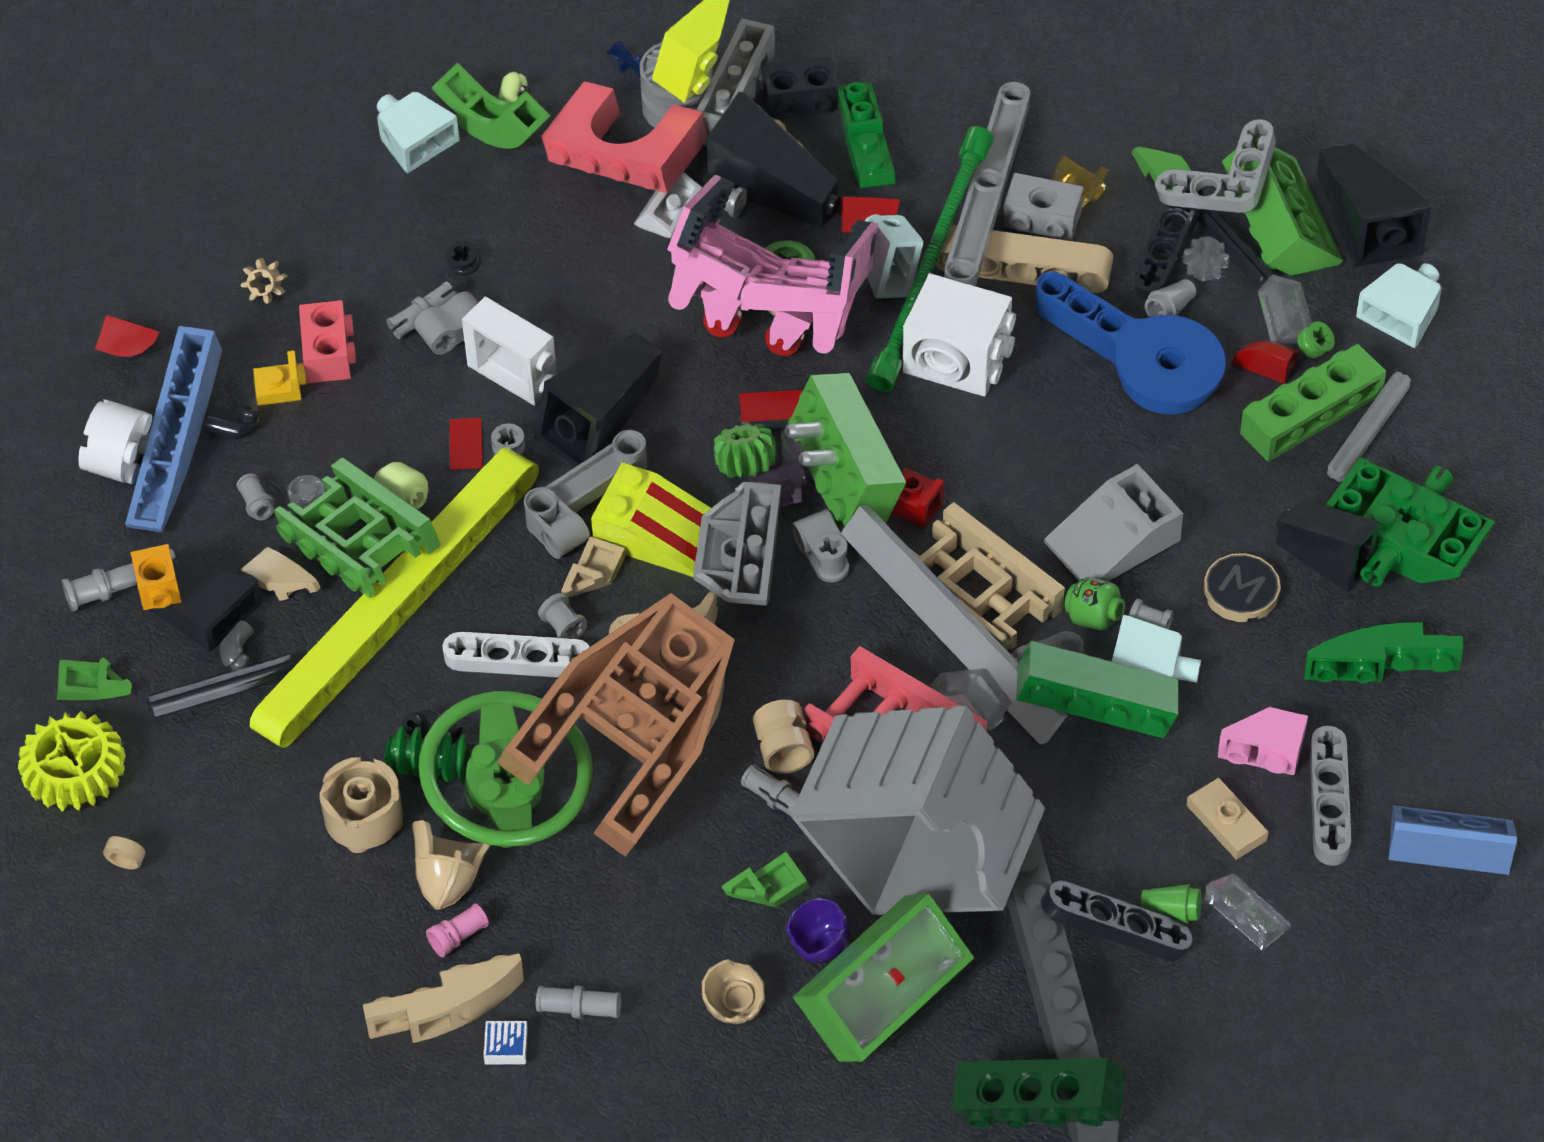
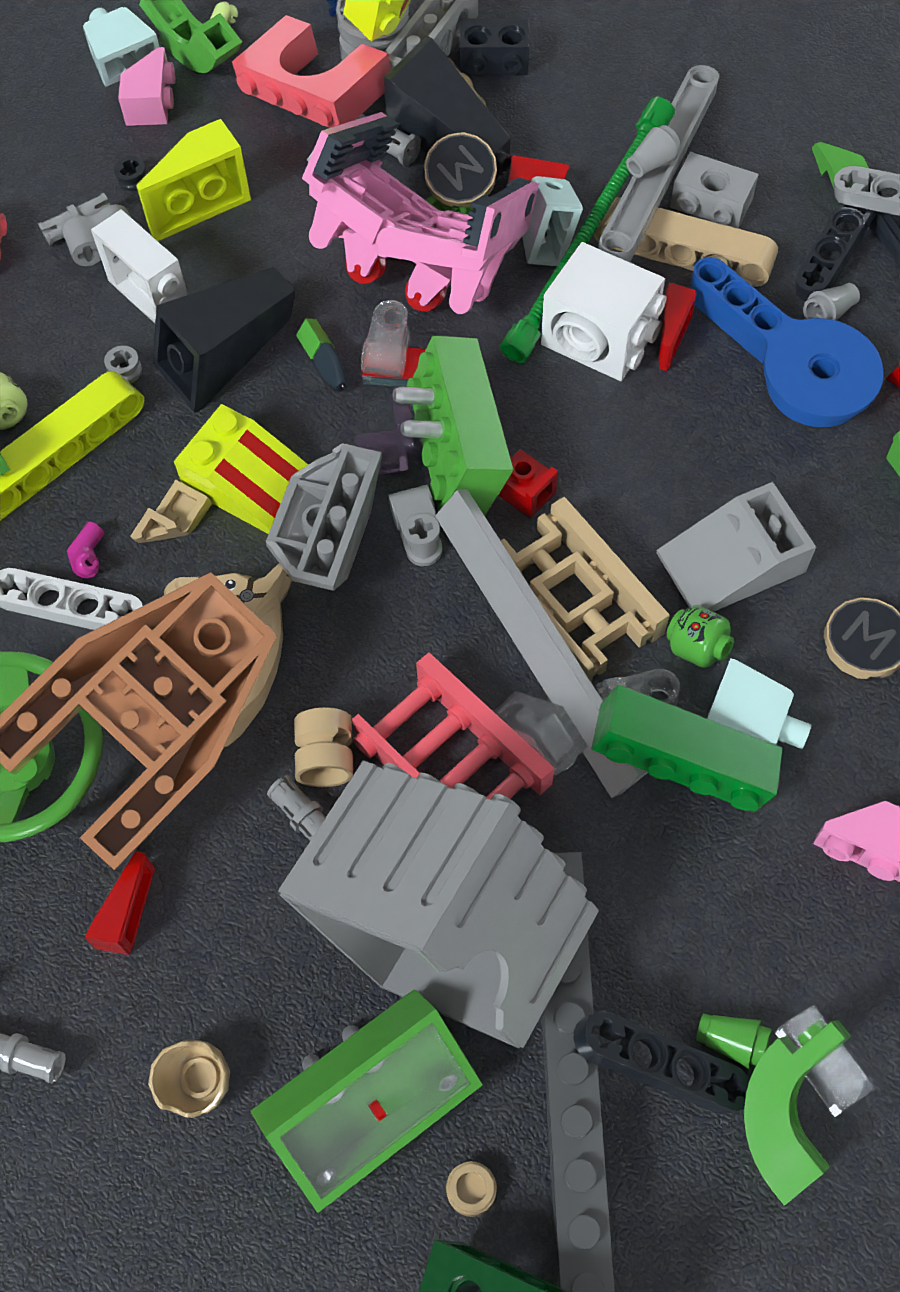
camera: 10 degrees right, 10 degrees up
(456, 173) = (146, 90): none -> bright pink slope
(465, 443) = (83, 360): red sticker -> none
(517, 610) = (81, 551): none -> dark pink arm
(541, 257) = (194, 181): none -> neon yellow slope
(553, 508) = (145, 441): light grey piece -> none
(562, 617) = (123, 567): light grey bush -> none
(637, 896) = (121, 913): none -> red slope
(699, 407) = (324, 354): none -> piece
(745, 450) = (356, 407): bright green gear -> none
(761, 386) = (387, 340): none -> clear piece
(769, 885) = (270, 930): bright green slope -> none
(796, 217) = (460, 169): none -> black tile
(819, 930) = (309, 1010): dark purple hair -> none
(865, 135) = (548, 99): green slope -> none
(978, 1040) = (471, 1189): none -> tan tile
(981, 177) = (655, 150): none -> light grey cone
(1027, 334) = (675, 321): none -> red slope
(1072, 173) = (750, 160): clear yellow bracket -> none
(1151, 614) = (761, 660): light grey bush -> none
(1205, 258) = (874, 264): clear gear -> none
(1208, 929) = (771, 1115): none -> bright green arch
(1227, 818) = (815, 929): tan plate -> none

